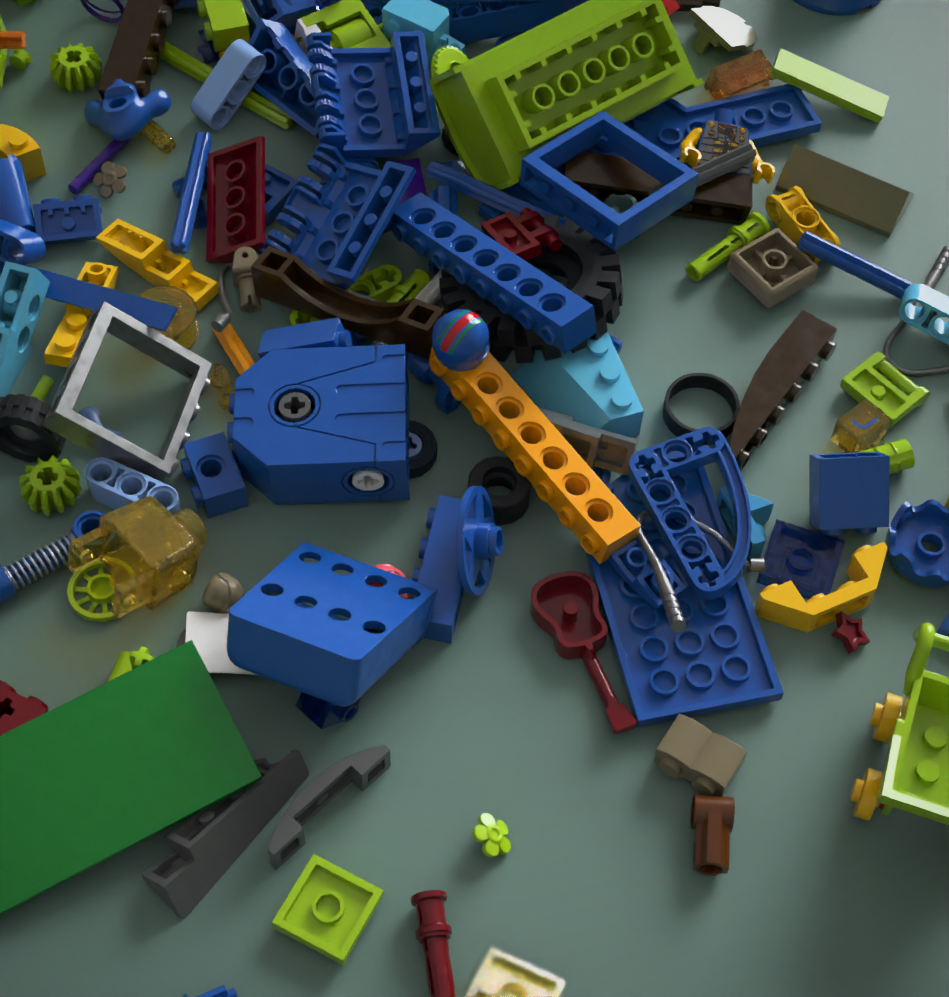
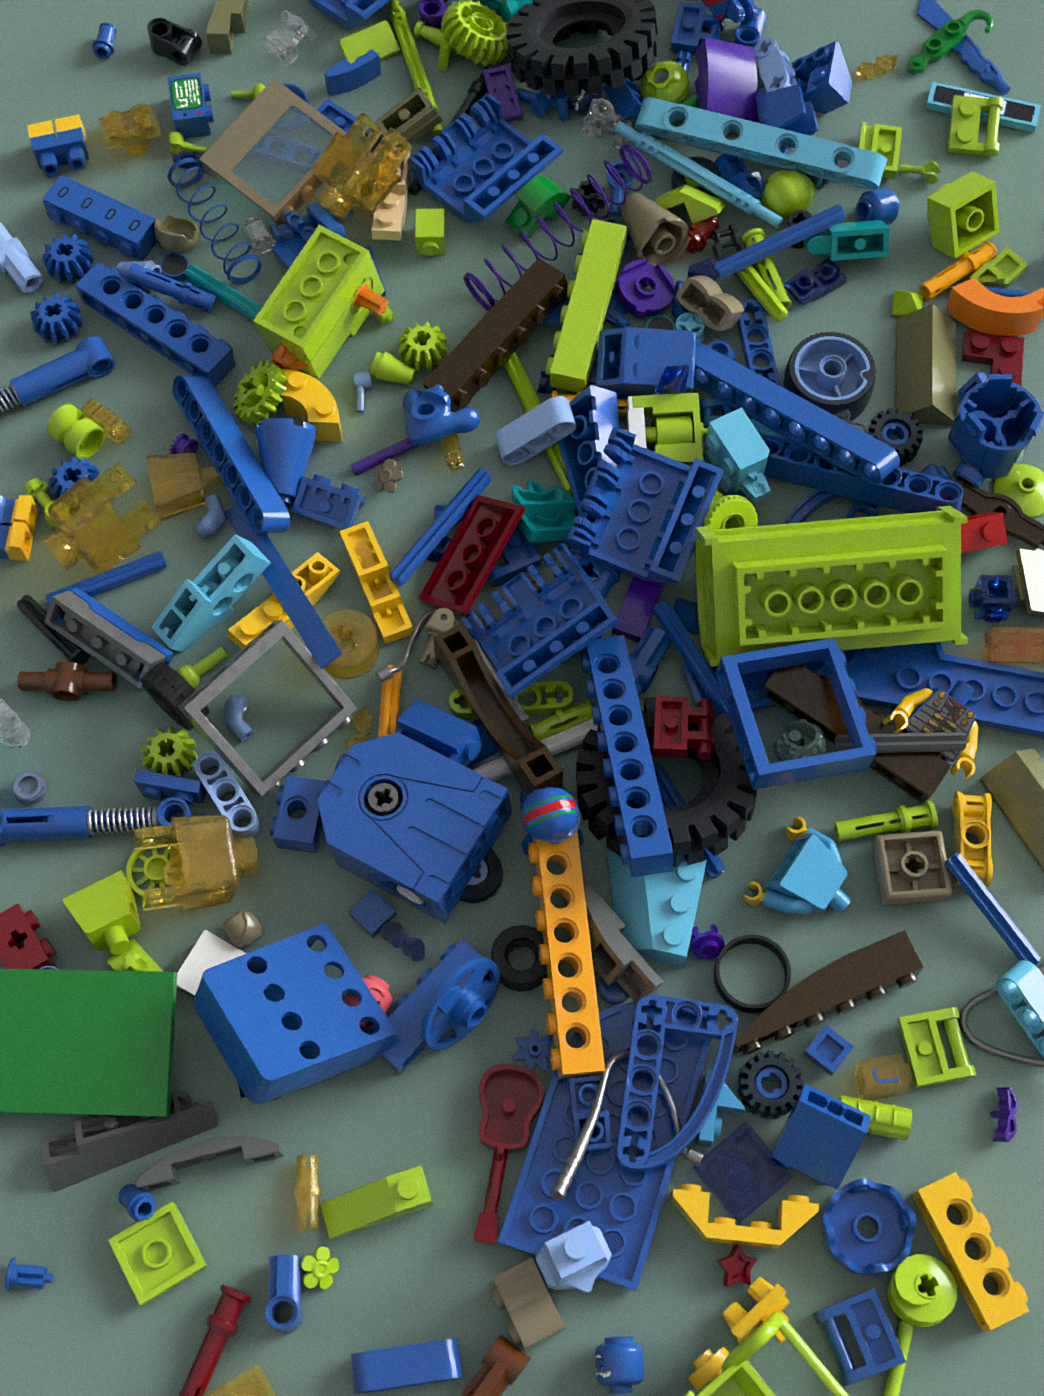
camera: 35 degrees right, 10 degrees up
(35, 118) = (361, 381): none -> medium blue hand
(58, 96) = (391, 369): none -> lime cone
(60, 514) = (155, 785): none -> blue plate
(77, 645) = (106, 913): none -> lime torso
(282, 145) = (547, 512): none -> teal plate
(284, 871) = (138, 1203): none -> blue pin
(336, 525) = (372, 913): none -> blue tile
(392, 534) = (411, 947): none -> clear blue piece
(437, 779) = (307, 1193): none -> clear yellow pin
(473, 871) = (284, 1289): none -> blue piece
(509, 749) = (377, 1203): none -> lime slope
(559, 559) = (534, 1057): none -> blue plant
(628, 869) = (406, 1366): none -> blue beam
(652, 402) = (706, 944): none -> dark purple plate
(694, 312) = (806, 876): none -> dark azure torso
(699, 48) = (993, 598): none -> clear blue brick
(720, 682) = (573, 1258): none -> light blue piece
(793, 475) = (780, 1100): none -> black bush
(804, 432) = (828, 1050): none -> blue plate
(811, 757) = (619, 1364): none -> blue head
(896, 644) = (768, 1300): none -> yellow hips

